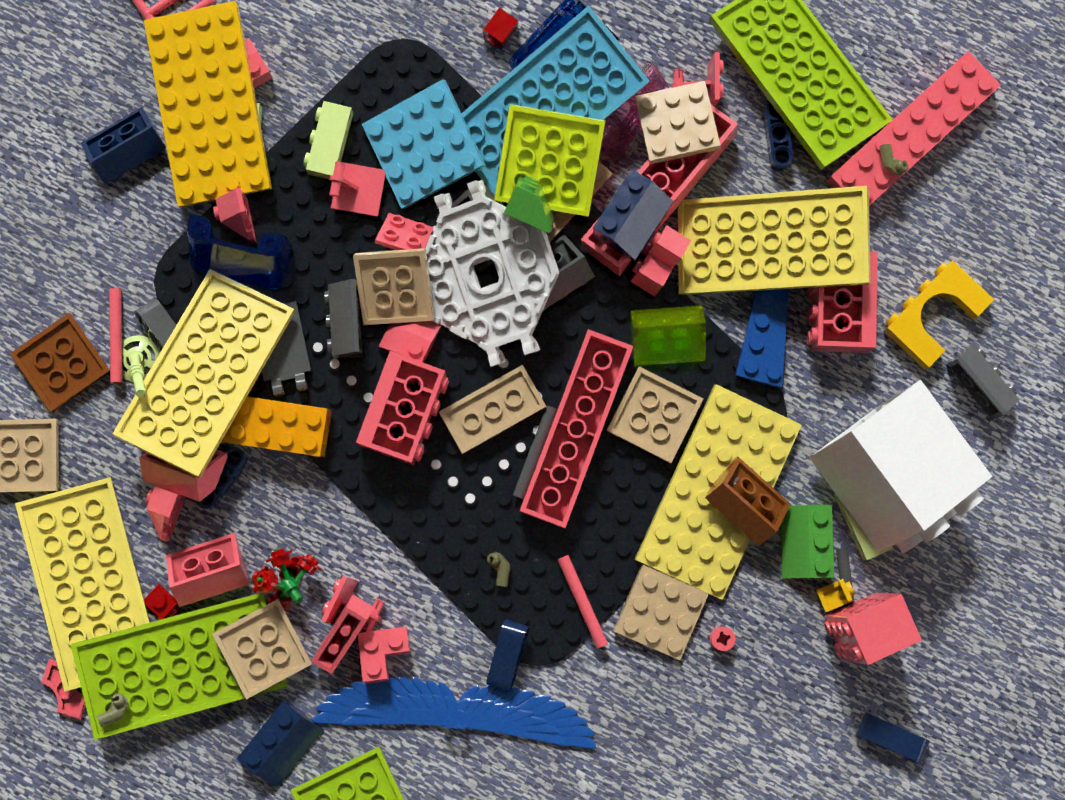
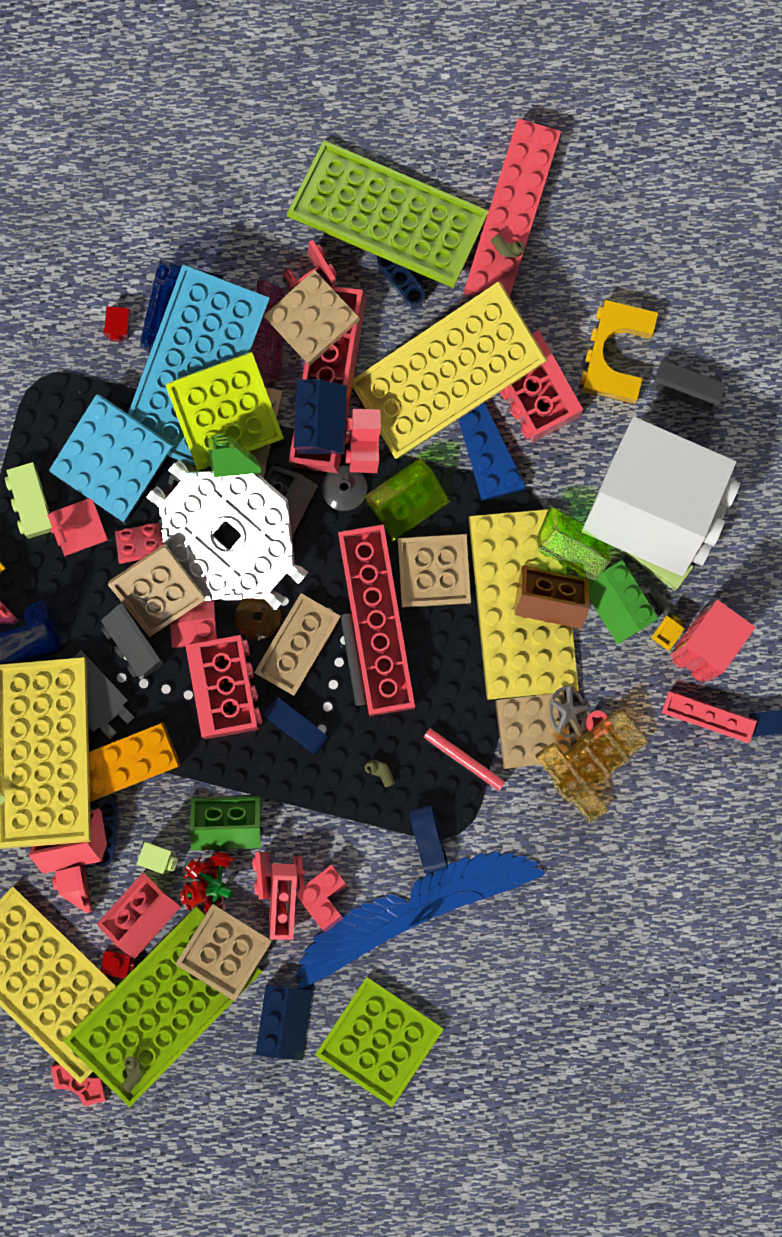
camera: 25 degrees left, 0 degrees up
(252, 529) = (157, 858): none -> yellowish green brick
(333, 532) = (225, 823): none -> bright green slope
(447, 481) = (295, 725): none -> dark blue beam
(470, 376) = (257, 629): none -> clear orange dish
(616, 305) = (347, 499): none -> dark grey dish
(697, 671) = (592, 761): none -> clear yellow slope
(701, 614) = (568, 712): none -> light grey wheel
(788, 456) = (563, 540): none -> clear neon green slope
(828, 693) = (709, 716): none -> coral plate

